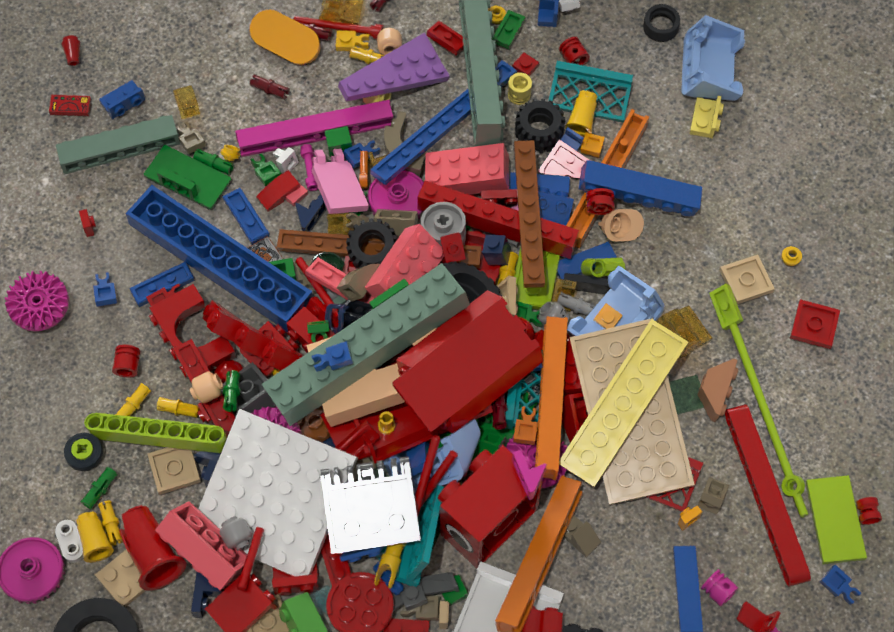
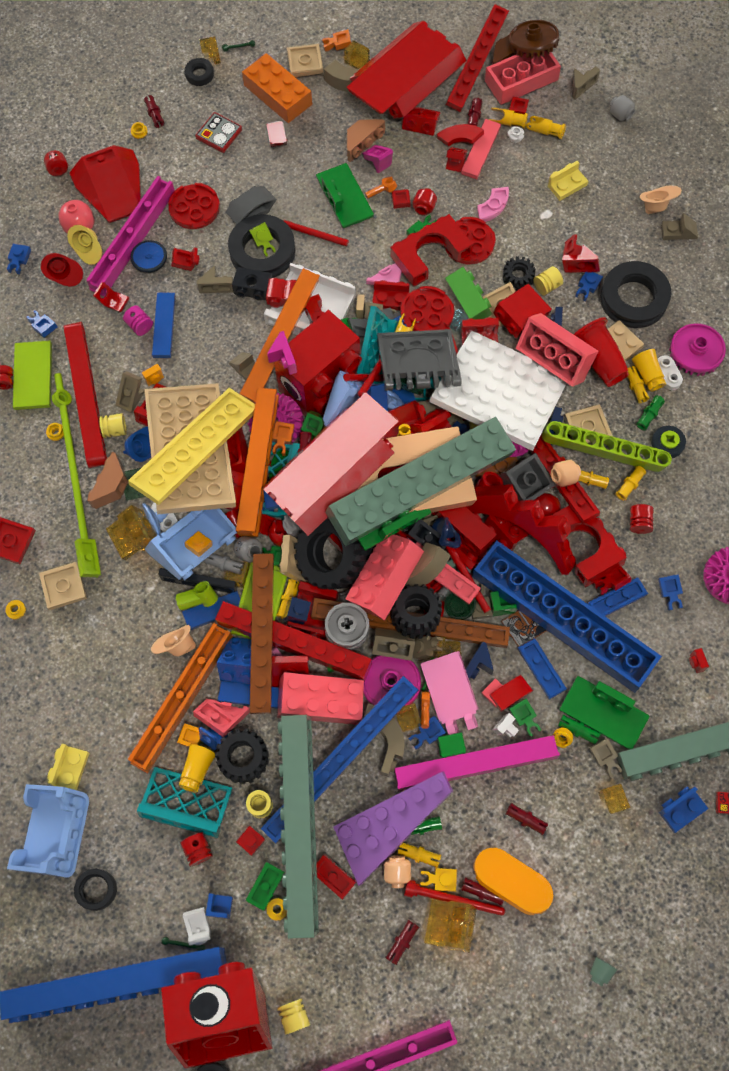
camera: 175 degrees left, 5 degrees up
(231, 391) = (543, 470): green pin -> none
(235, 533) = (530, 357): light grey head -> none
(250, 559) = (517, 336): red bar -> none
(307, 154) = (483, 736): dark pink bar -> none
(318, 327) = (466, 522): green tile -> none
(336, 356) = (449, 456): blue plate -> none
(452, 248) = (338, 596): red bracket -> none
(495, 595) = (313, 308): none -> red leg
(600, 202) = (190, 651): red wheel -> none
(642, 188) = (149, 673): blue brick -> none
(693, 425) = (138, 445): none -> blue piece
(725, 452) = (113, 425): none -> light yellow piece
(796, 444) = (52, 428): none -> yellow plate

